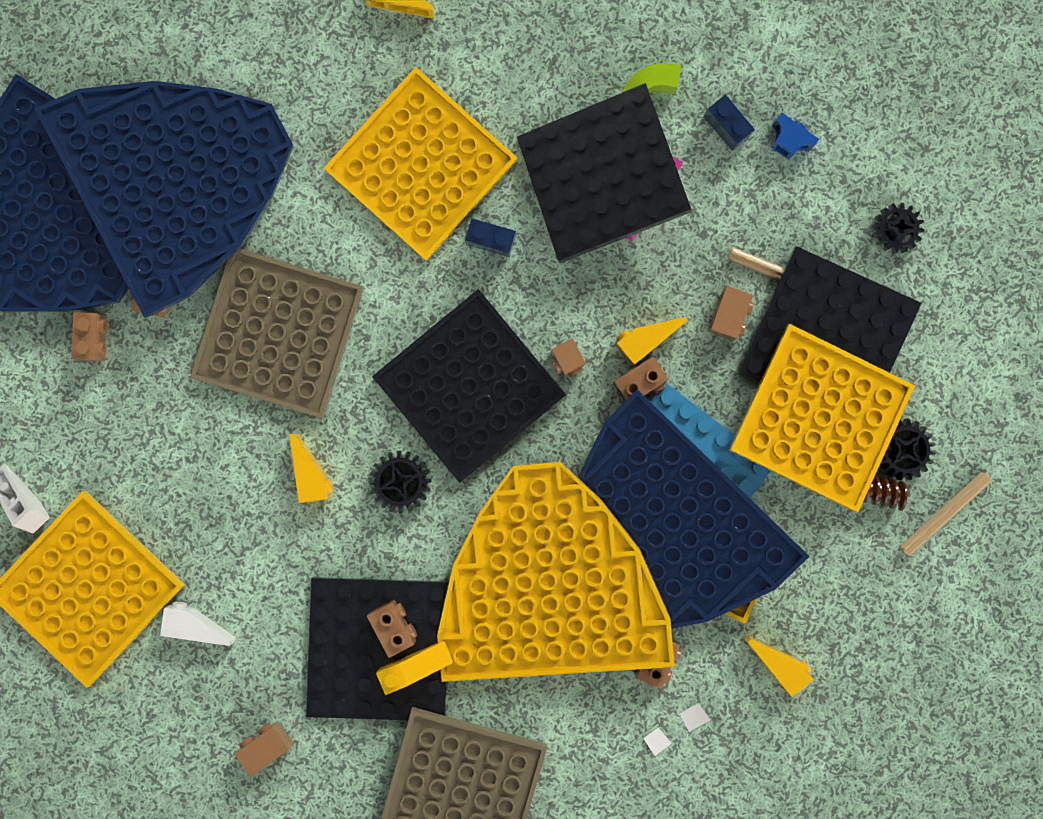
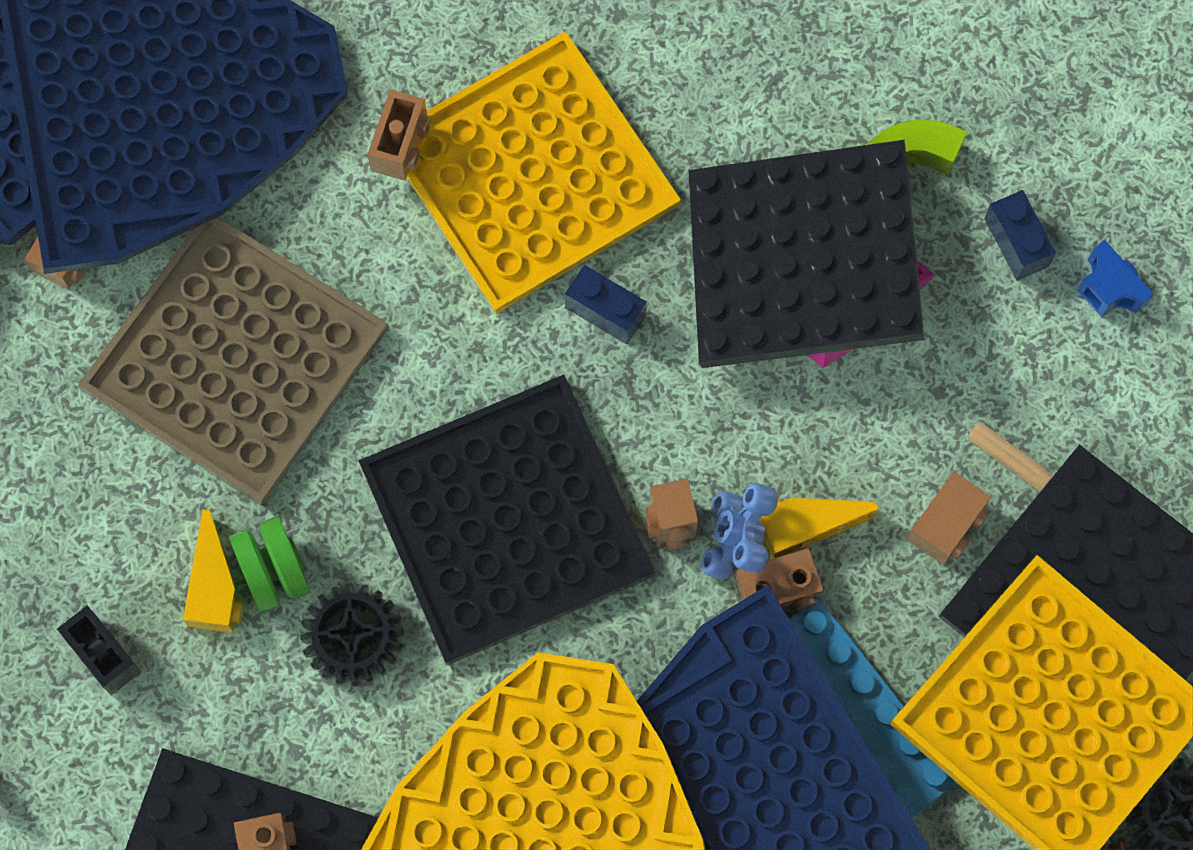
camera: 15 degrees right, 15 degrees down
(255, 534) = (99, 650): none -> black brick
(333, 167) = (398, 135): none -> medium nougat brick
(338, 456) = (269, 564): none -> bright green wheel
(610, 358) = (739, 531): none -> medium blue gear

